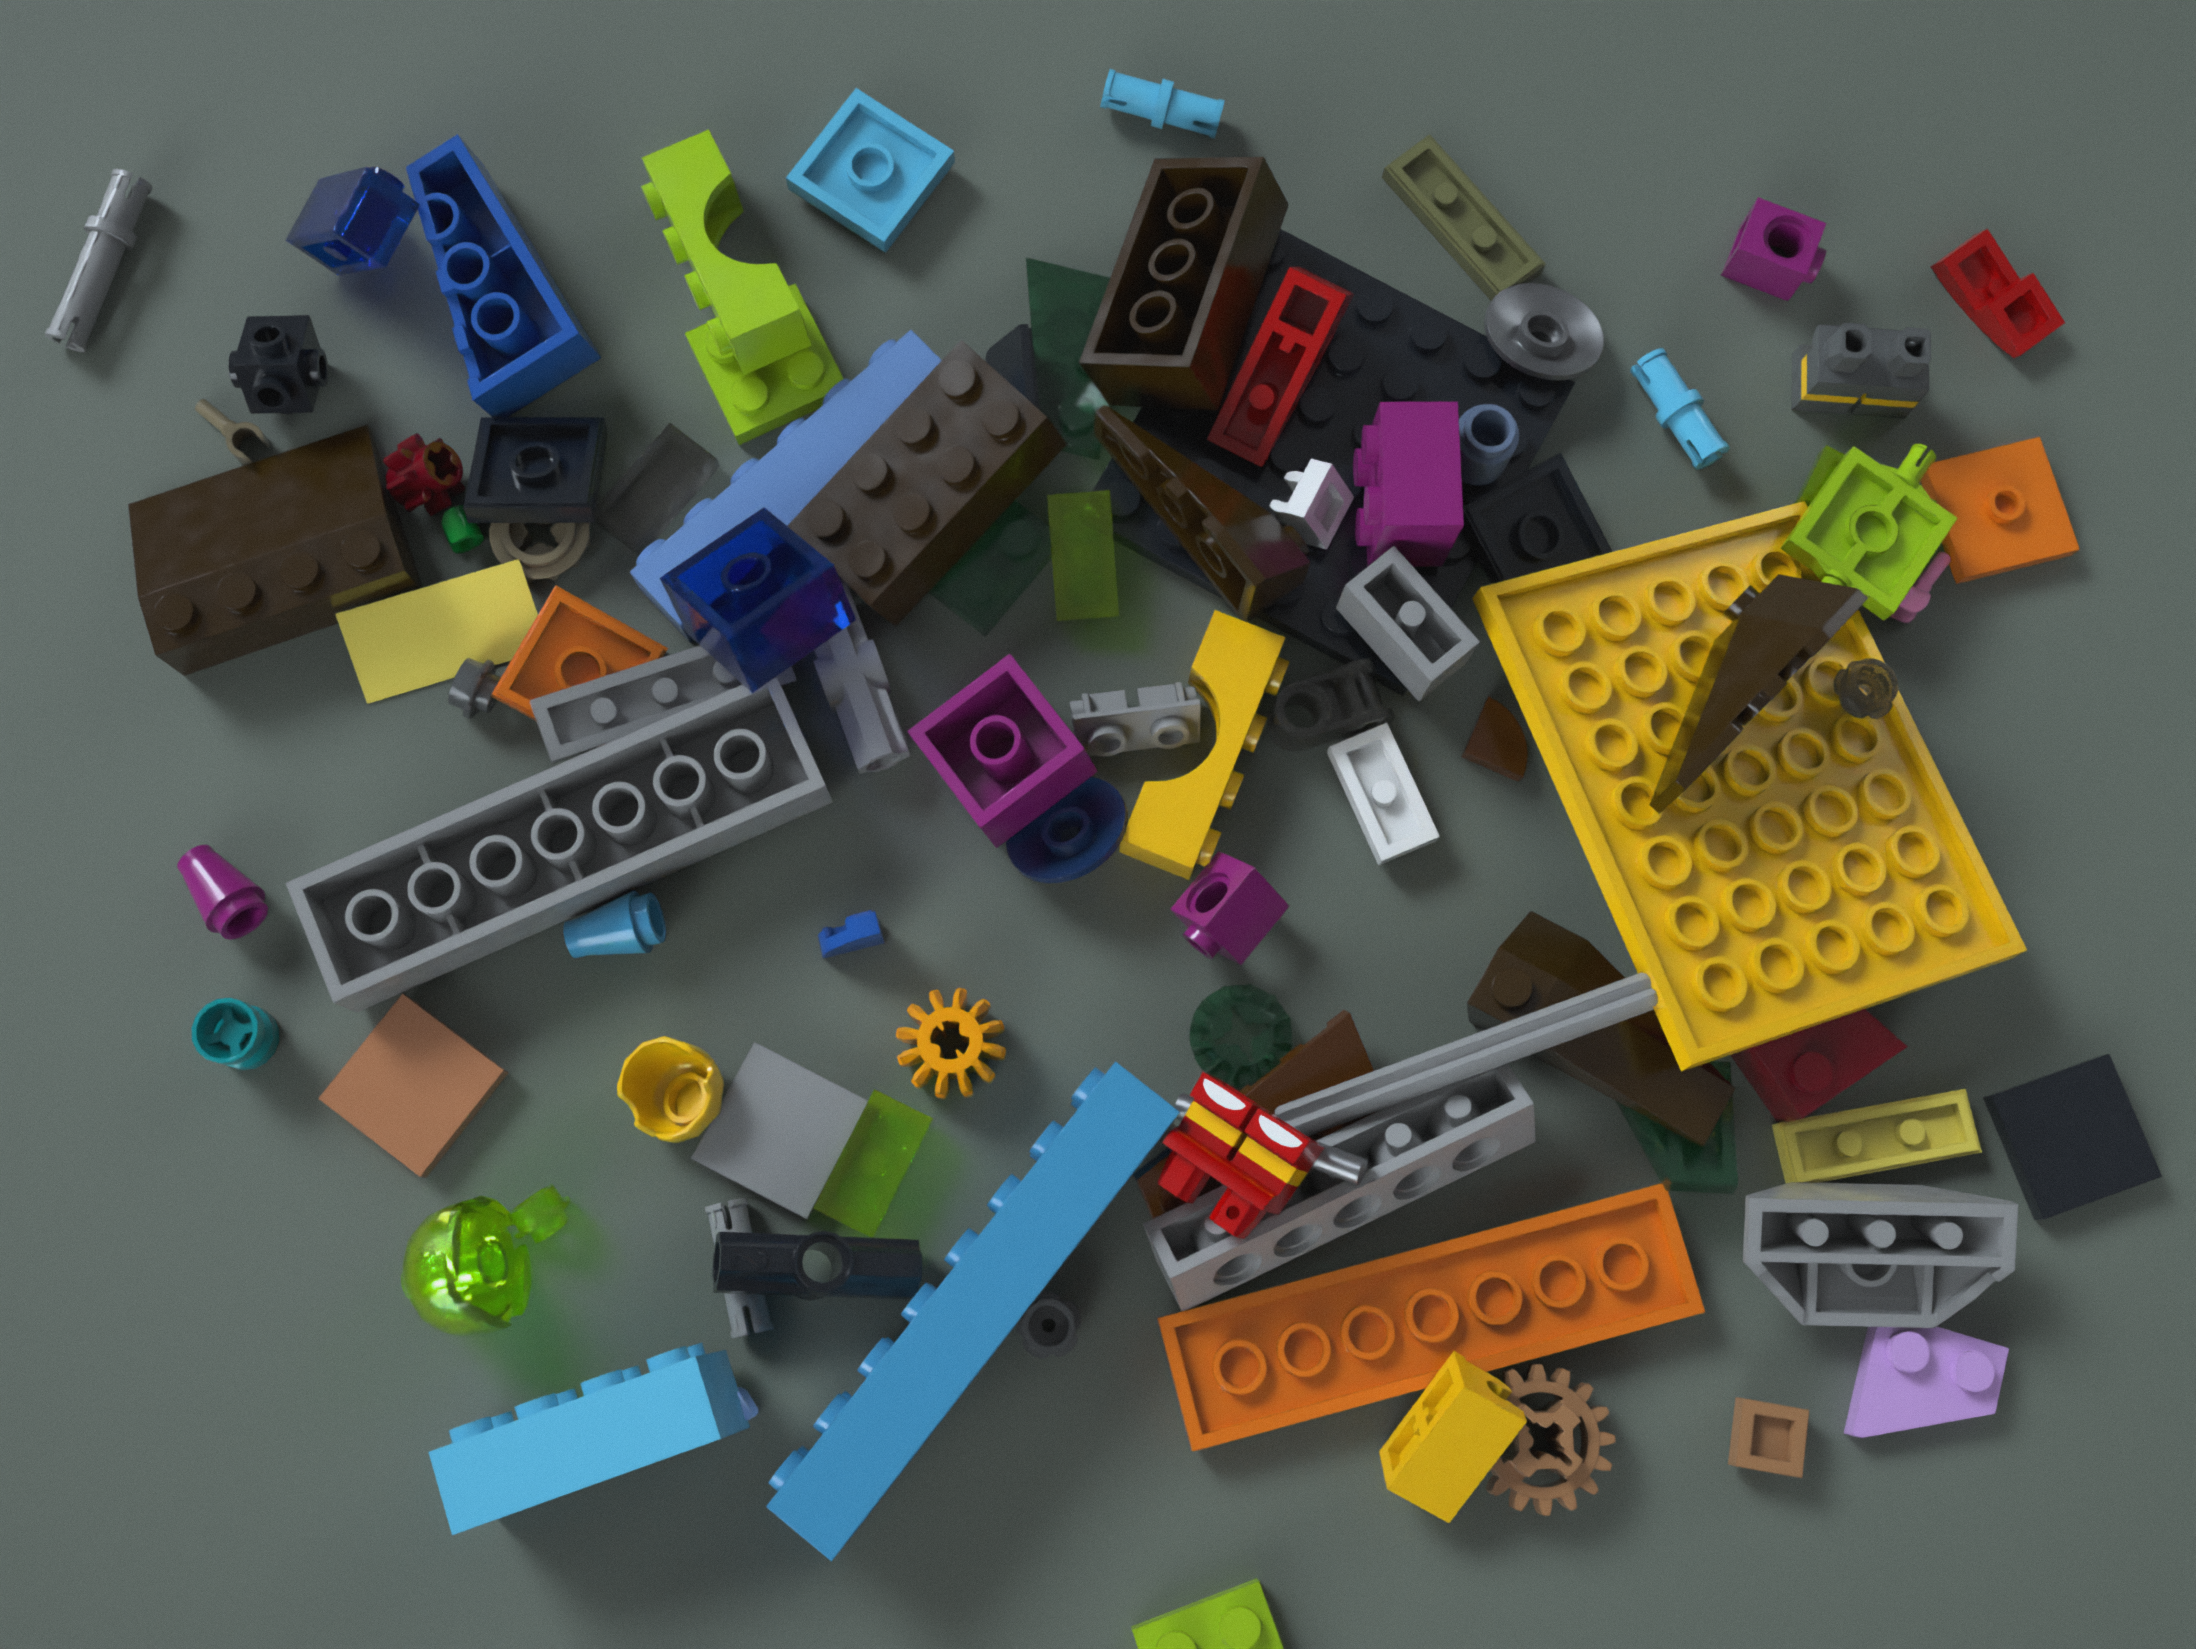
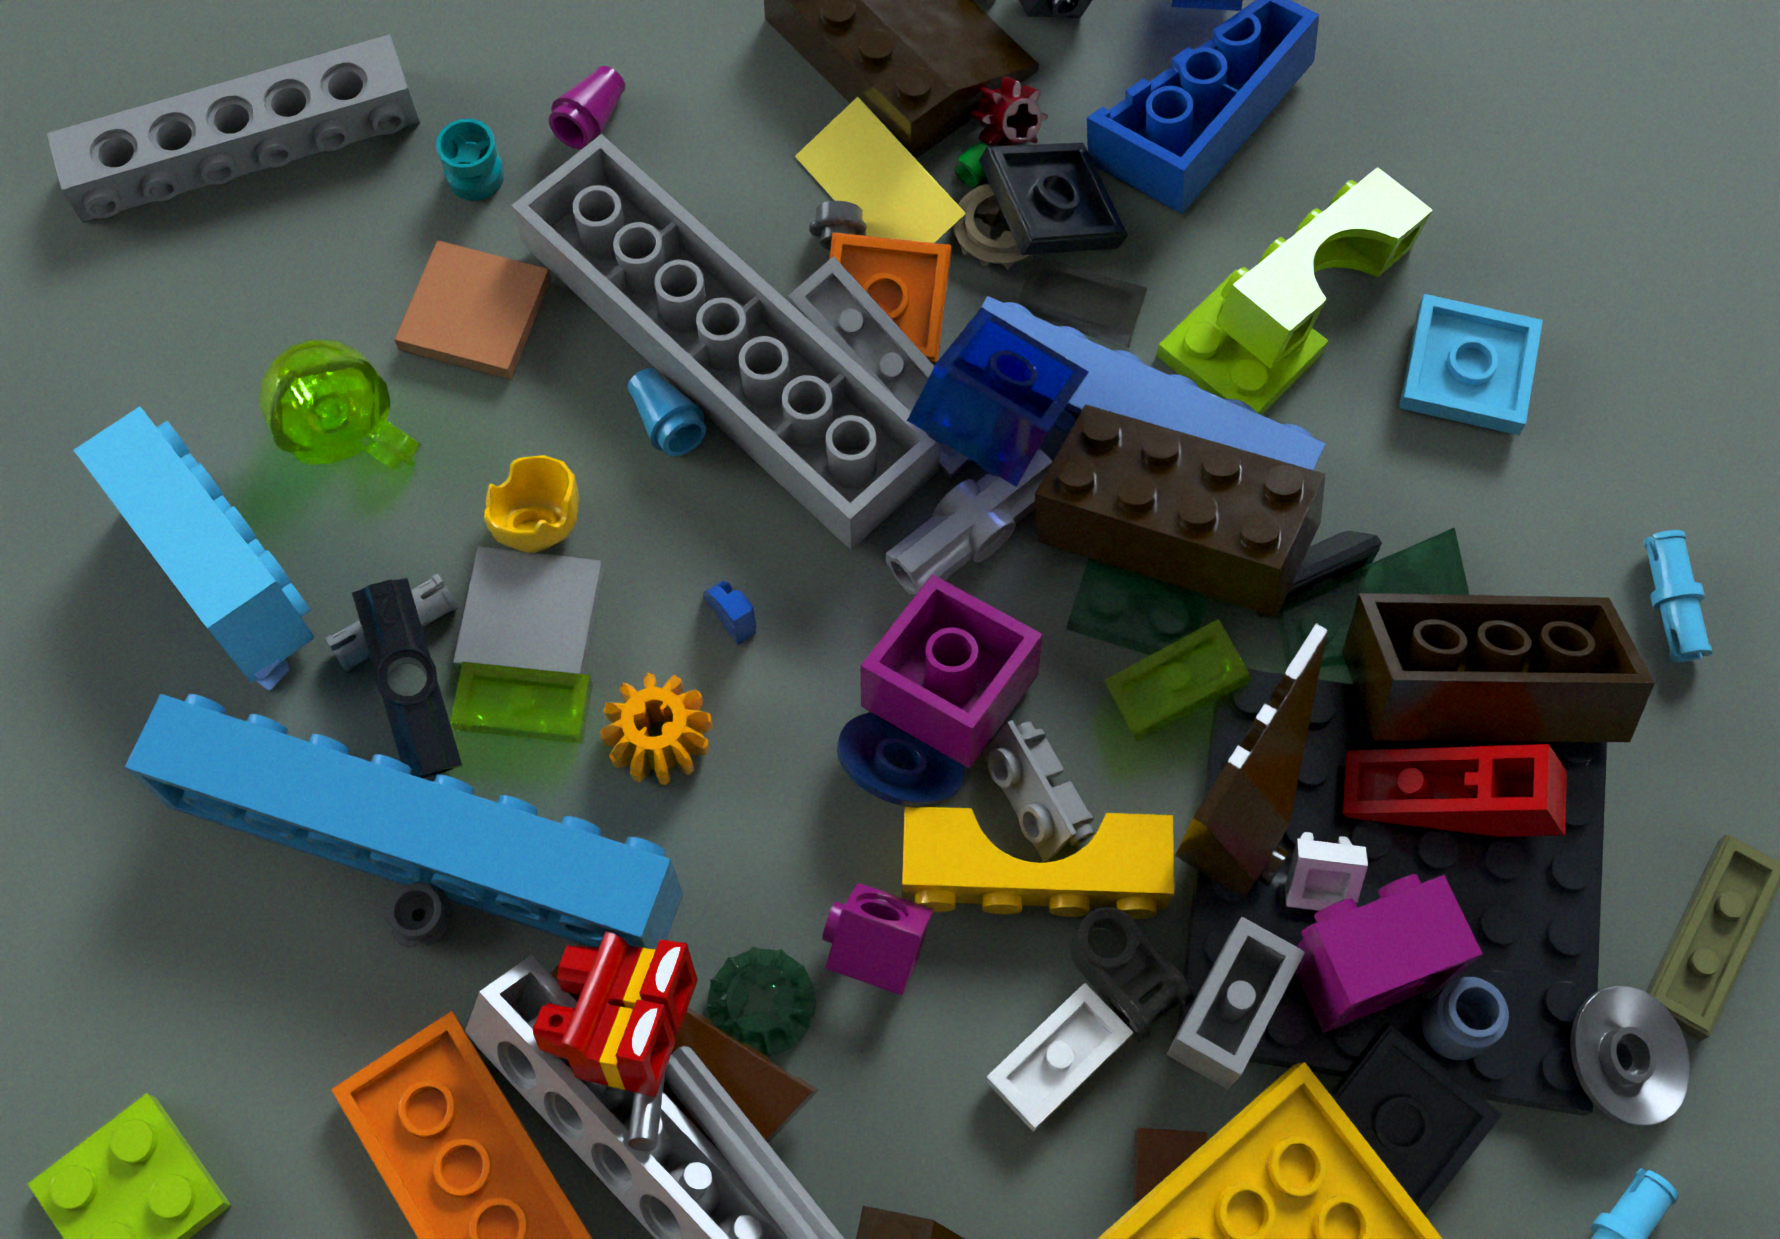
camera: 75 degrees right, 10 degrees down
(56, 1305) = (232, 128): none -> light grey brick

